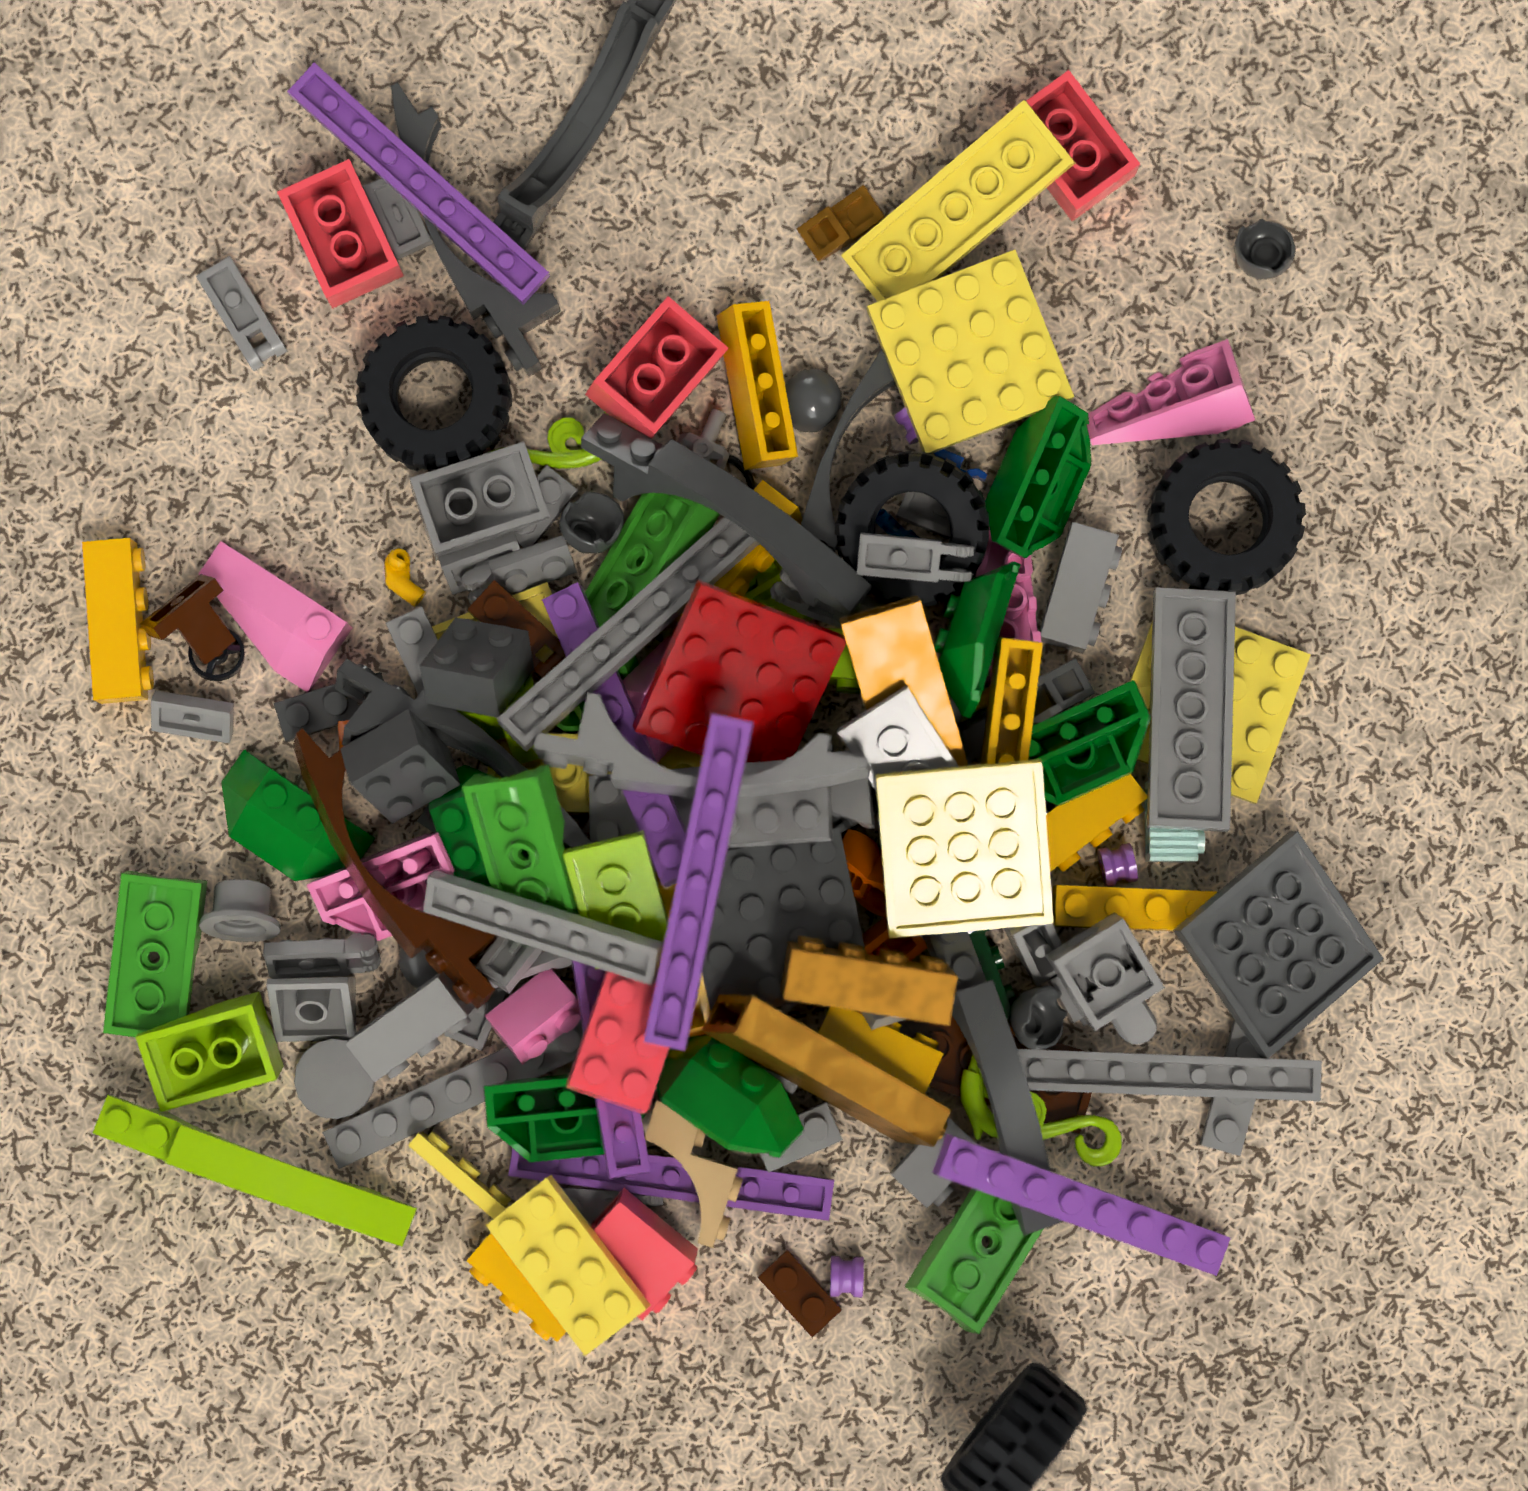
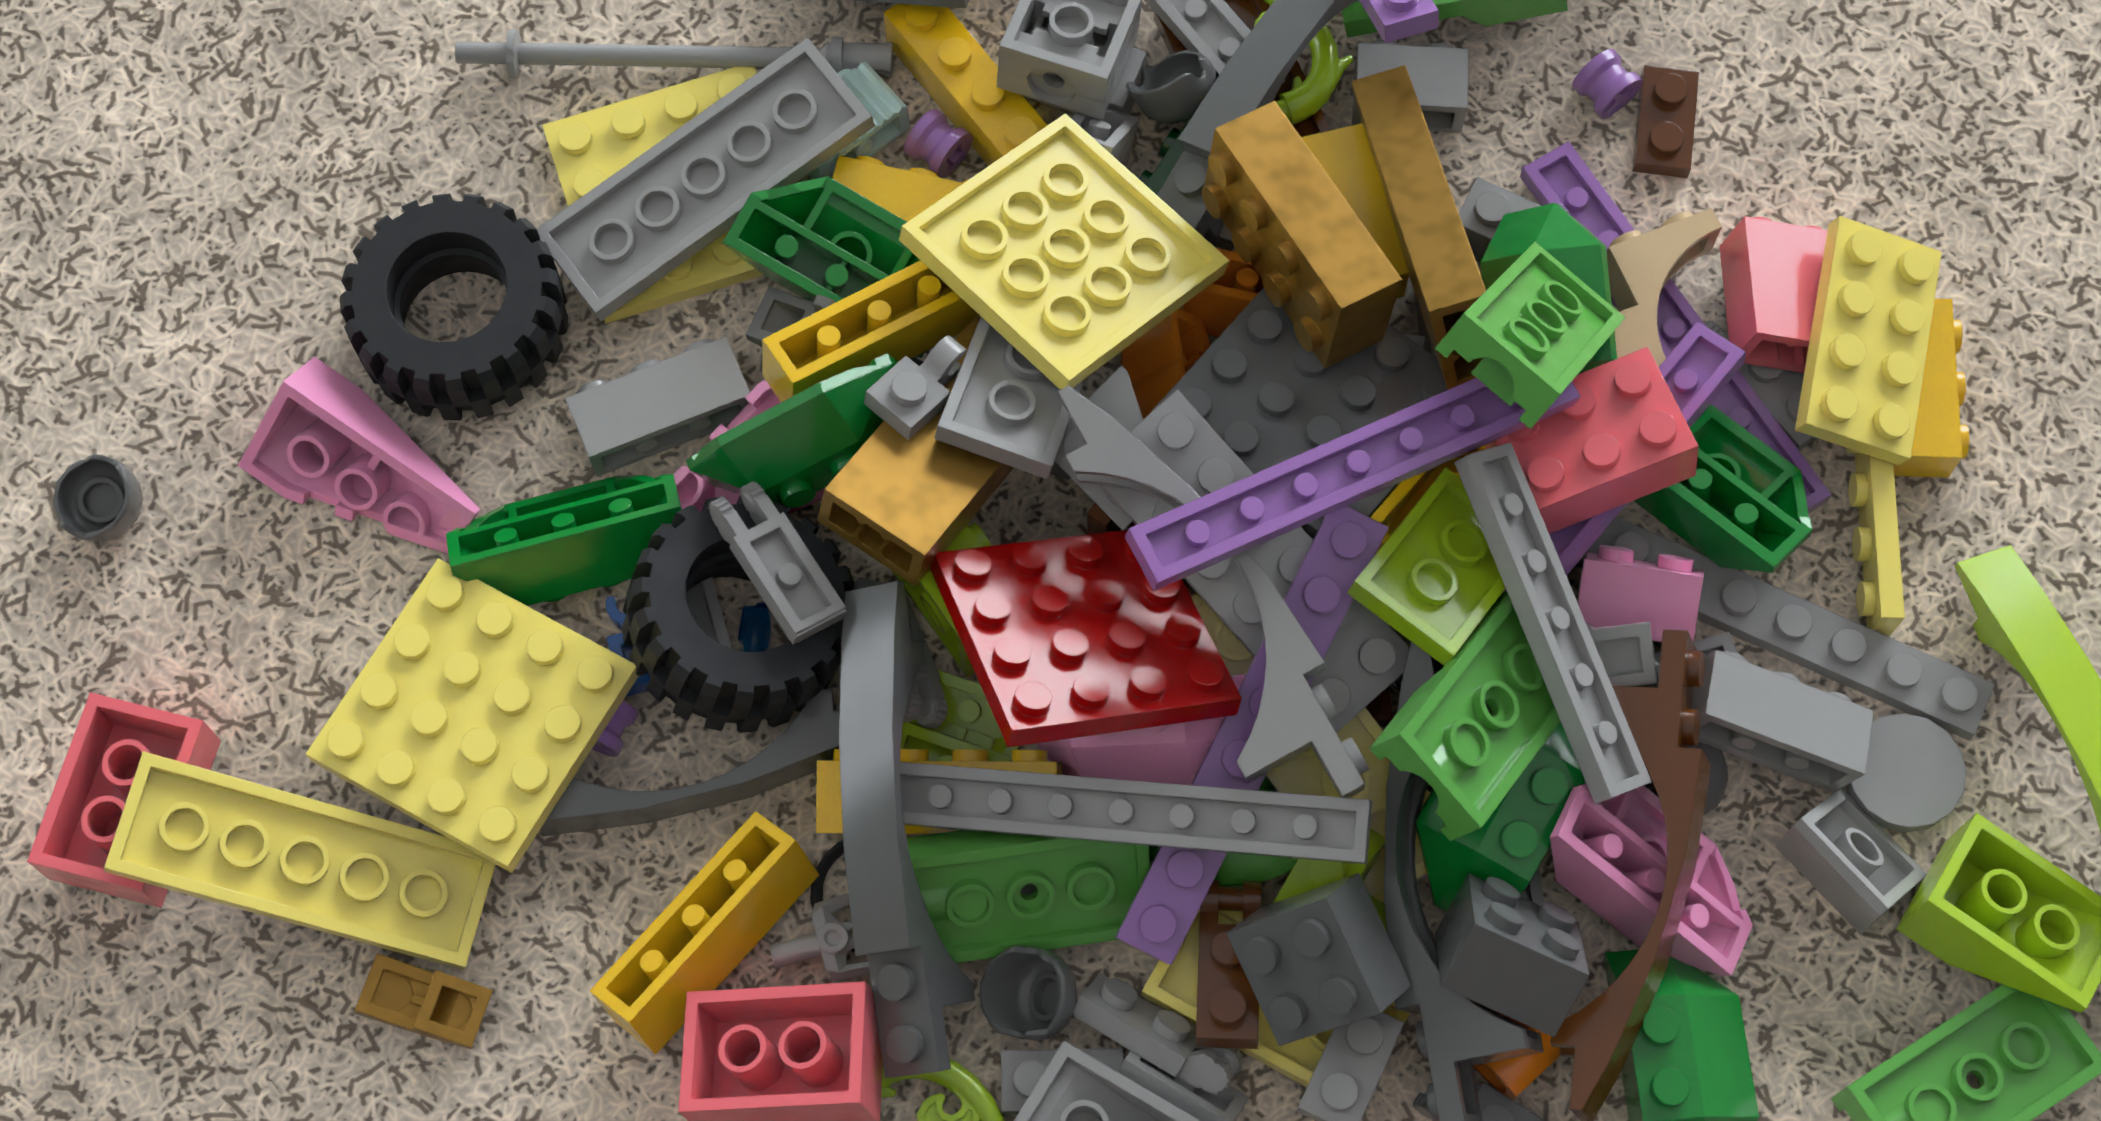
camera: 130 degrees left, 15 degrees down
(241, 912) = (1828, 1025): light grey piece -> none
(322, 957) = (1790, 891): light grey hinge -> none
(695, 1013) = (1532, 332): none -> bright green piece
(812, 399) = (665, 862): dark grey hair -> none
(943, 694) = (913, 393): none -> light grey plate
(1222, 850) = (515, 54): none -> light grey bar

